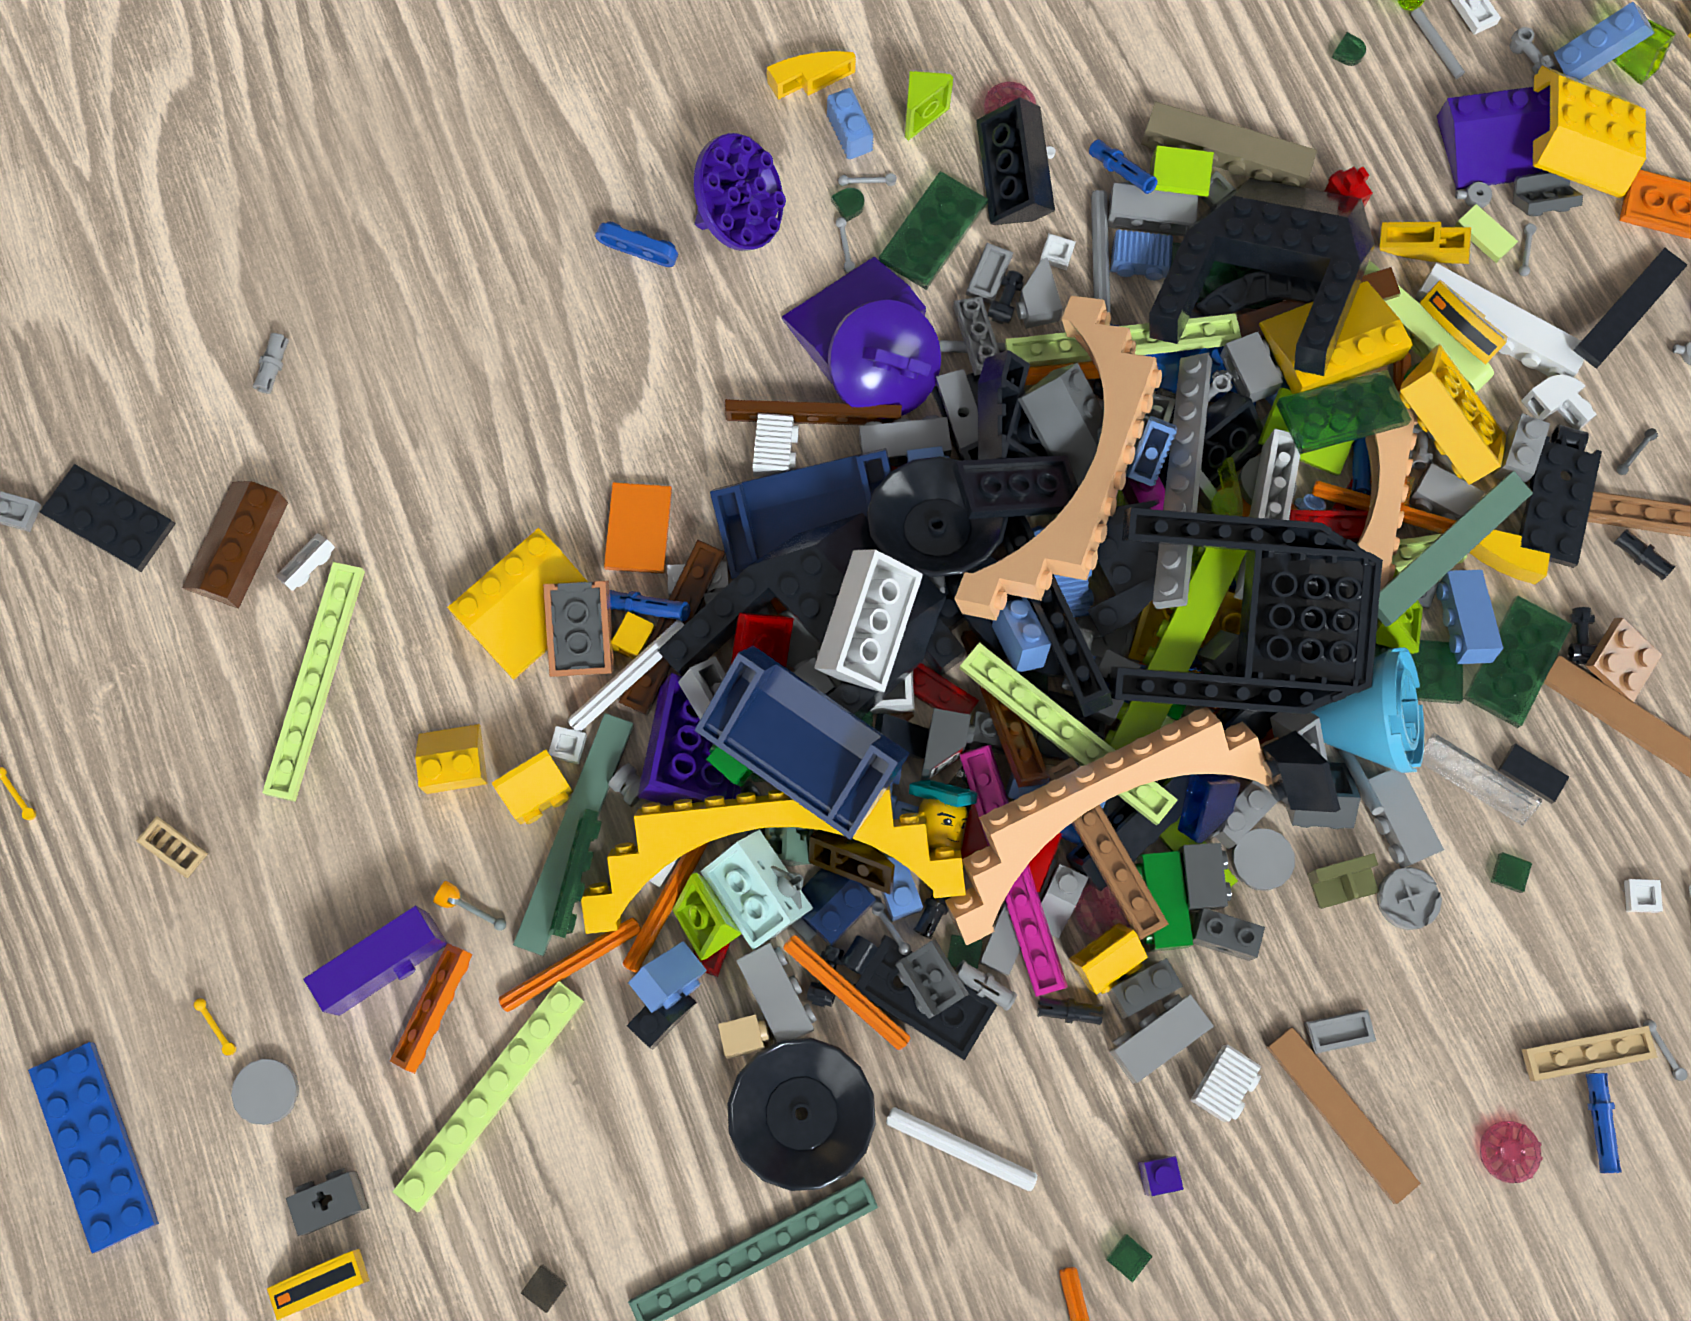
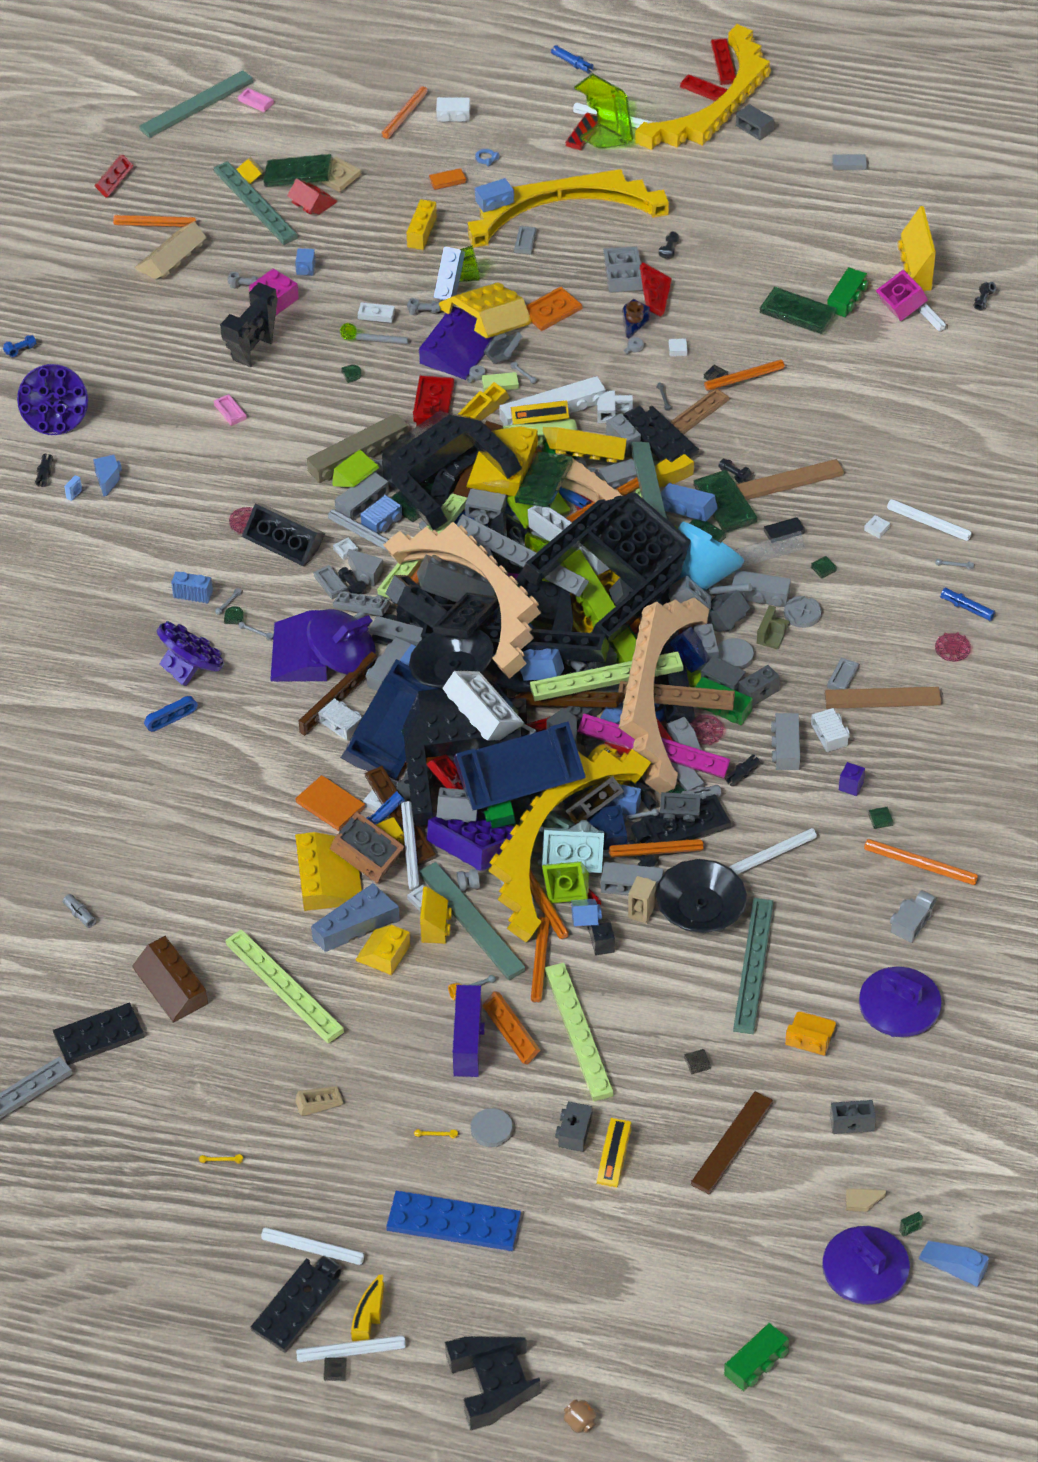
camera: 50 degrees left, 25 degrees down
(298, 569) = (212, 953): white plate -> none
(476, 692) = (355, 918): none -> sand blue wedge
(578, 862) = (497, 918): clear green plate -> none
(809, 72) = (144, 588): yellow slope -> none
(927, 100) = (210, 547): lime slope -> none
(933, 230) = (284, 588): clear green plate -> none
(946, 793) = (596, 743): teal tile -> none
(1104, 153) = (329, 491): blue pin -> none
(1109, 958) = (730, 734): yellow slope -> none
(1144, 988) = (757, 732): dark grey brick -> none
(1152, 451) = (496, 550): medium blue brick -> none
(1300, 775) = (708, 596): black slope -> none
(1397, 172) = (436, 388): none -> red tile
(1589, 1053) = (931, 589): tan plate -> none
(1623, 659) = (759, 461): plate -> none
(1630, 308) = (591, 351): black tile -> none
(1644, 554) = (716, 424): black pin -> none

